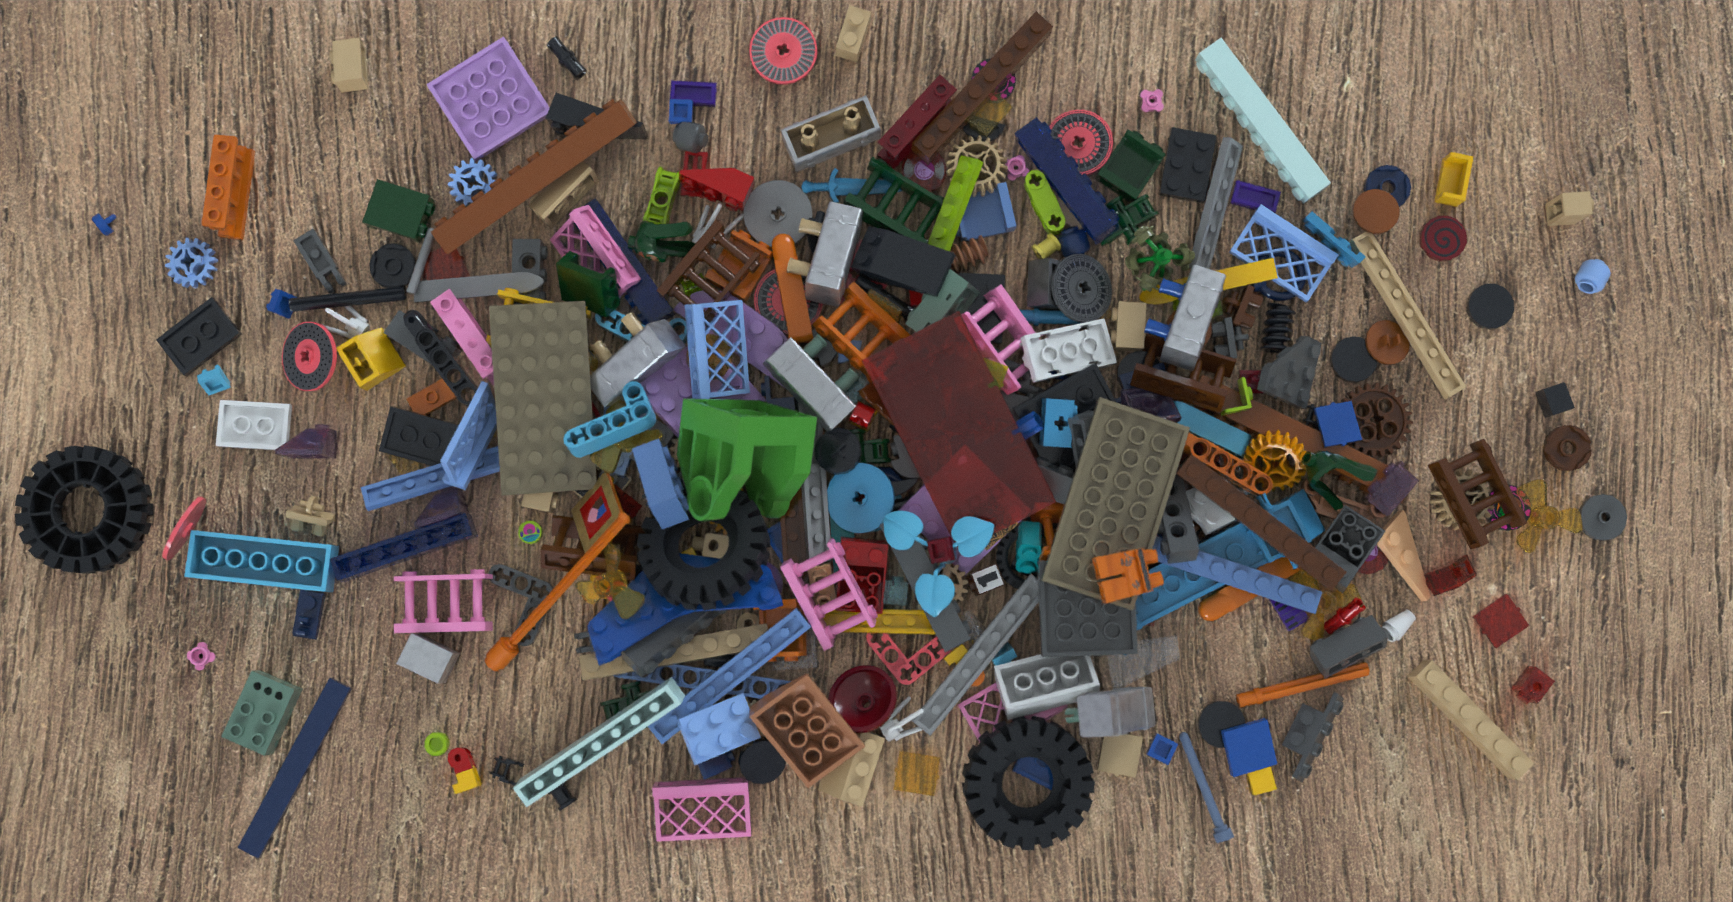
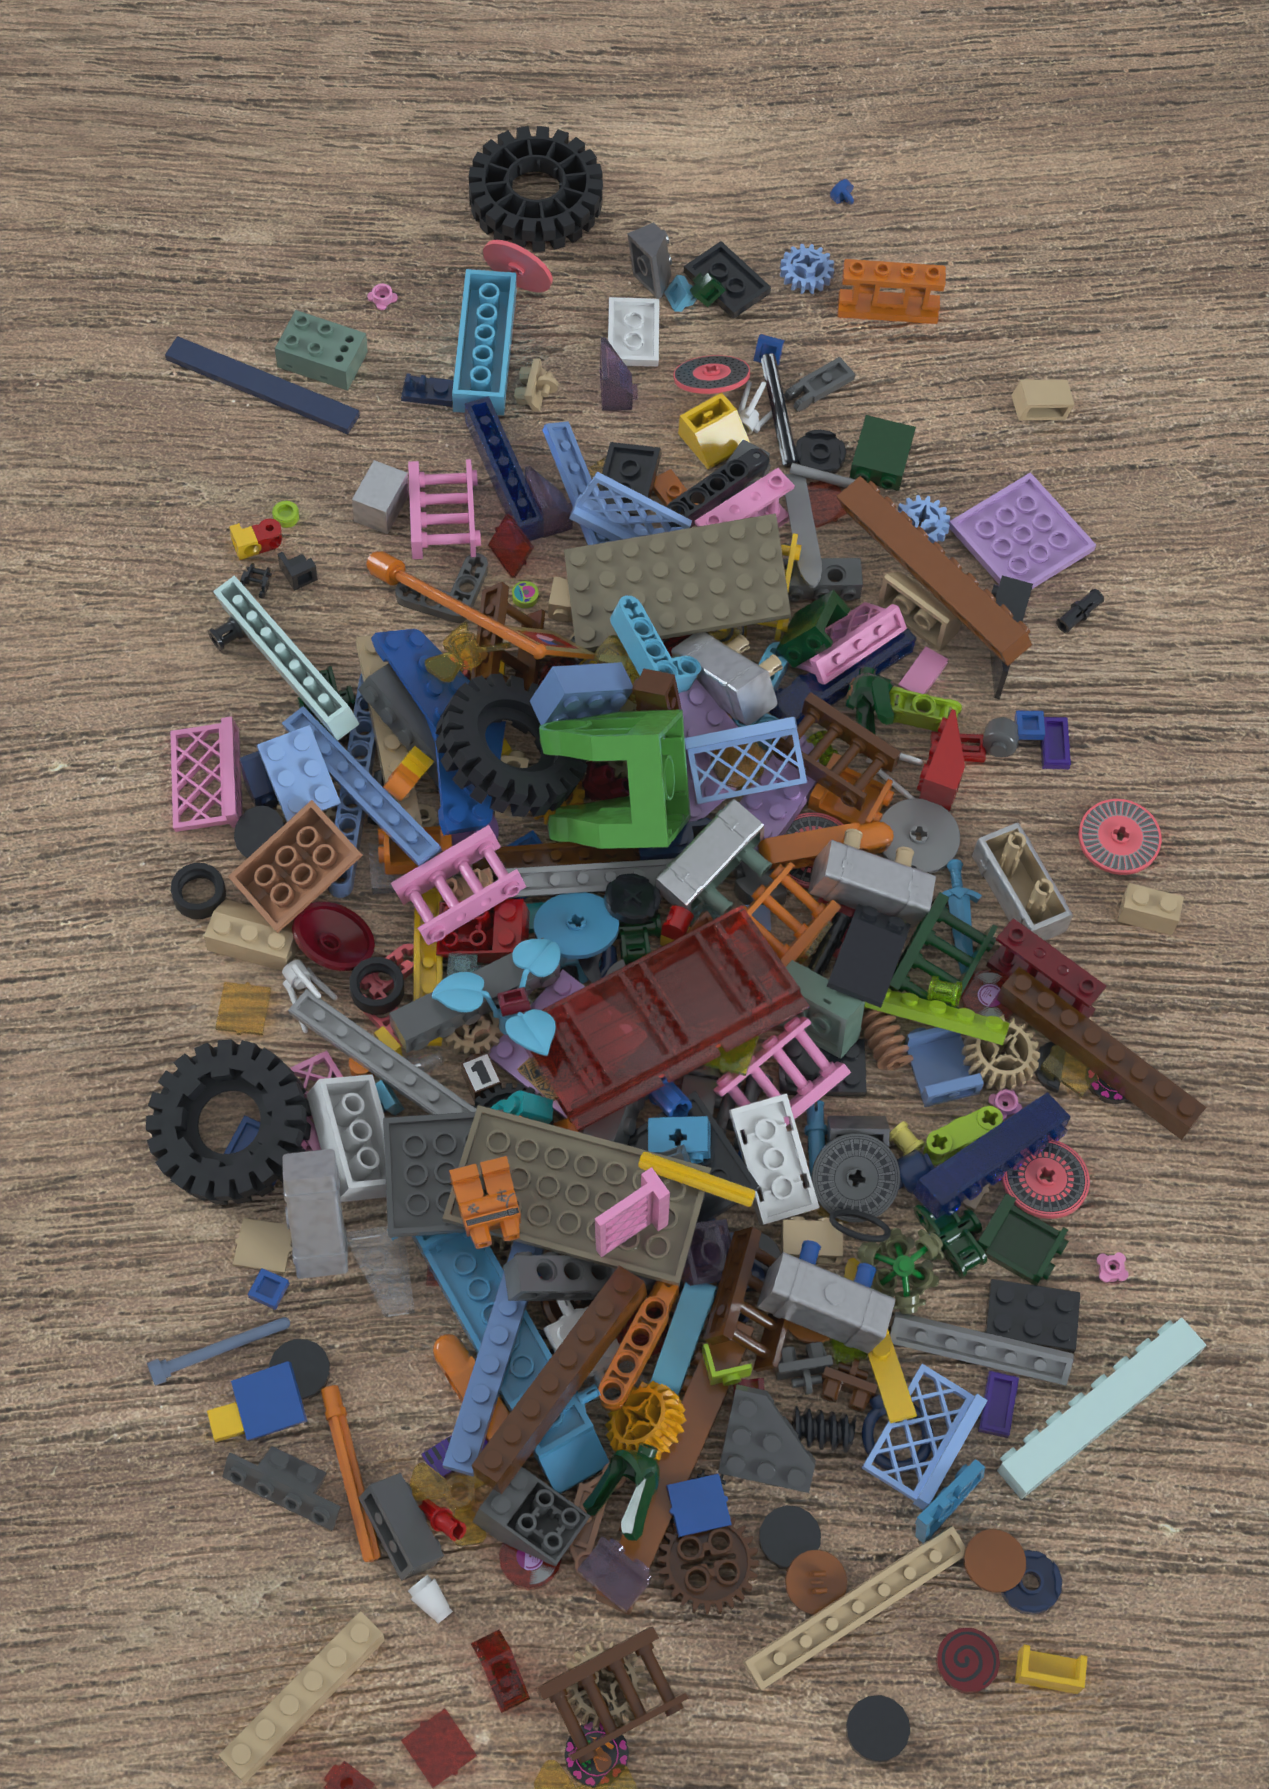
camera: 85 degrees right, 20 degrees down
(178, 404) = (650, 258): none -> flat silver slope
(214, 355) = (706, 289): none -> dark green tile
(485, 543) = (510, 546): none -> clear red piece
(497, 732) = (298, 570): none -> black panel
(623, 196) = (923, 671): none -> bright pink tile
(664, 420) = (656, 691): none -> reddish brown brick
(723, 636) = (407, 773): none -> leg
(812, 831) = (192, 872): none -> black tyre
(921, 675) = (377, 965): none -> black tyre
(931, 204) = (945, 991): none -> clear neon green bush
(1111, 409) = (697, 1179): none -> yellow axle
(1112, 278) = (864, 1237): none -> black tyre
(1160, 459) = (633, 1214): none -> bright pink fence
(1401, 551) = (534, 1600): light nougat wing -> none

